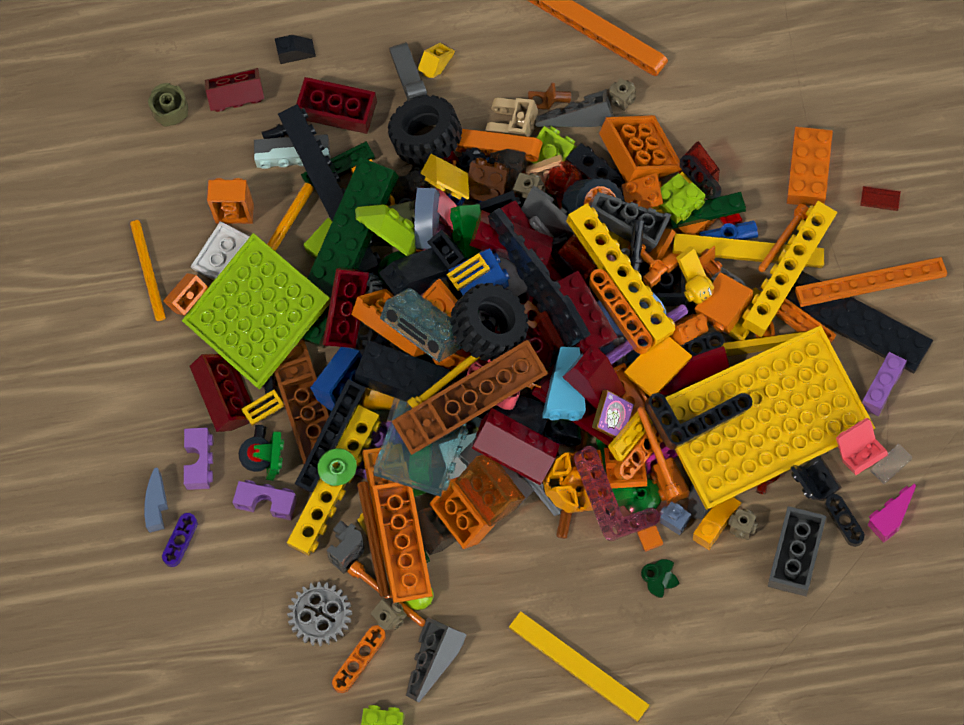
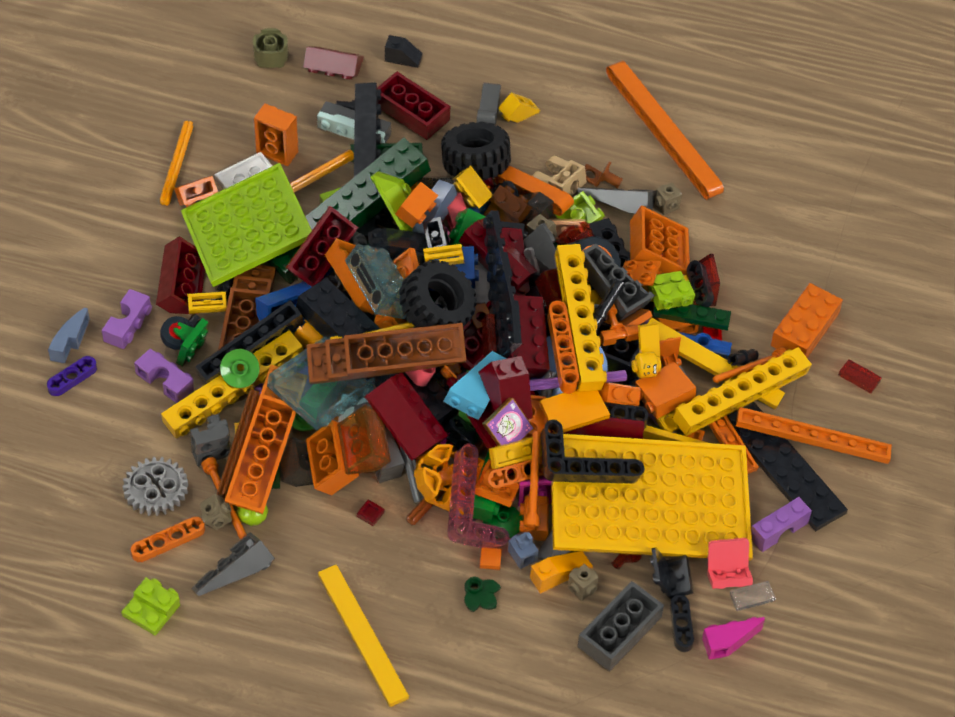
camera: 15 degrees right, 15 degrees down
(414, 227) = (415, 206): none -> orange brick
(522, 545) = (370, 512): none -> dark red tile
(771, 231) = (743, 357): none -> black pin

